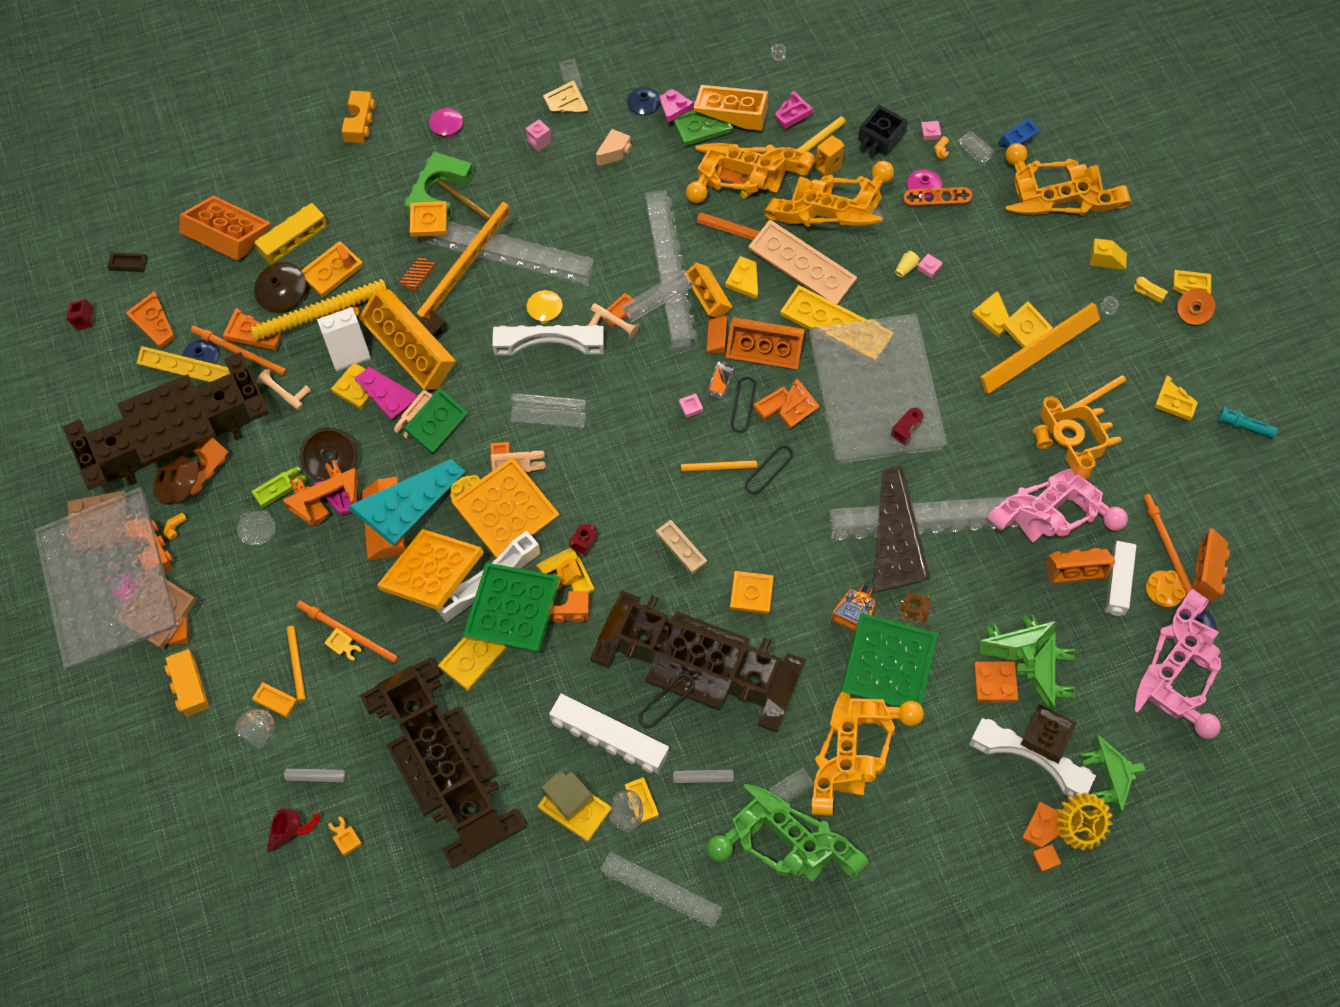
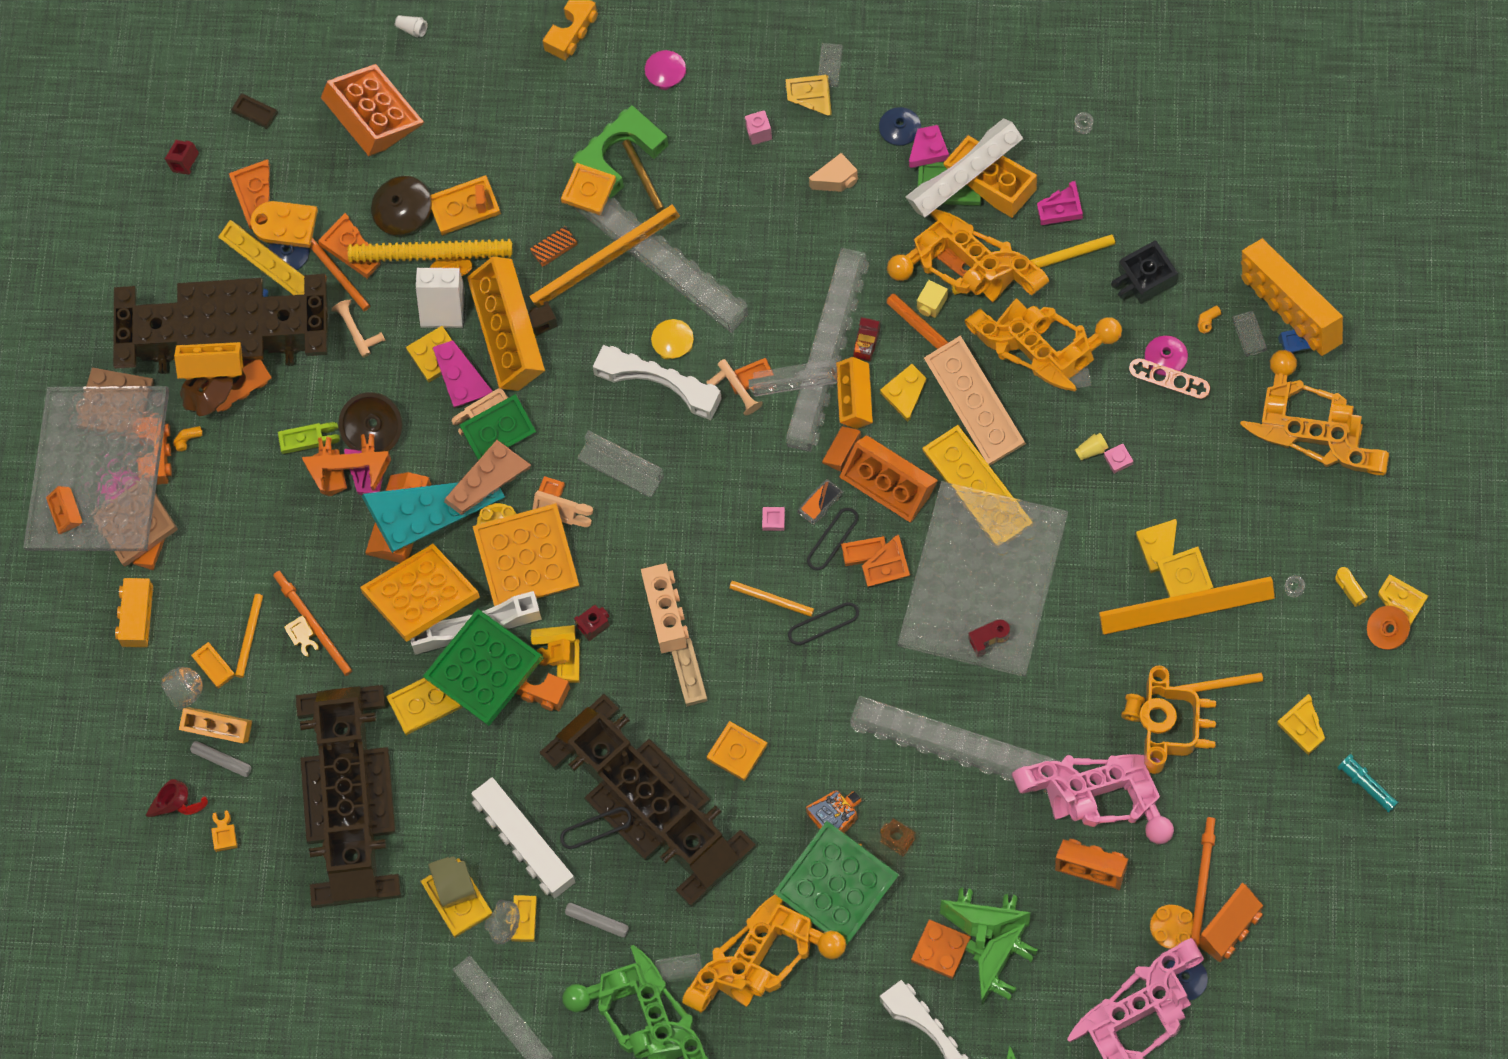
camera: 30 degrees right, 5 degrees up
(88, 621) = (63, 509): none -> orange slope
(169, 451) = (208, 360): none -> light orange brick
(189, 332) = (286, 223): none -> light orange plate
(232, 158) = (413, 25): none -> white cone
(256, 527) = (267, 473): clear dish -> none
(290, 233) = (438, 145): yellow brick -> none
(298, 747) = (215, 725): none -> light orange brick
(445, 459) = (486, 477): none -> nougat wing
(653, 525) = (654, 579): none -> light nougat brick
(696, 249) = (866, 339): none -> dark red leg
(700, 126) = (989, 149): none -> white arch
(731, 205) = (932, 299): none -> light yellow brick
(829, 156) = (1069, 282): light orange brick -> none
(898, 544) = (911, 764): dark brown wing -> none
(930, 130) = (1208, 291): bright pink plate -> none
(1001, 105) = (1292, 297): none -> light orange brick
(1048, 734) = (960, 1024): dark brown plate -> none
(1107, 254) = (1325, 526): yellow slope -> none
(1120, 579) = (1129, 896): white brick -> none

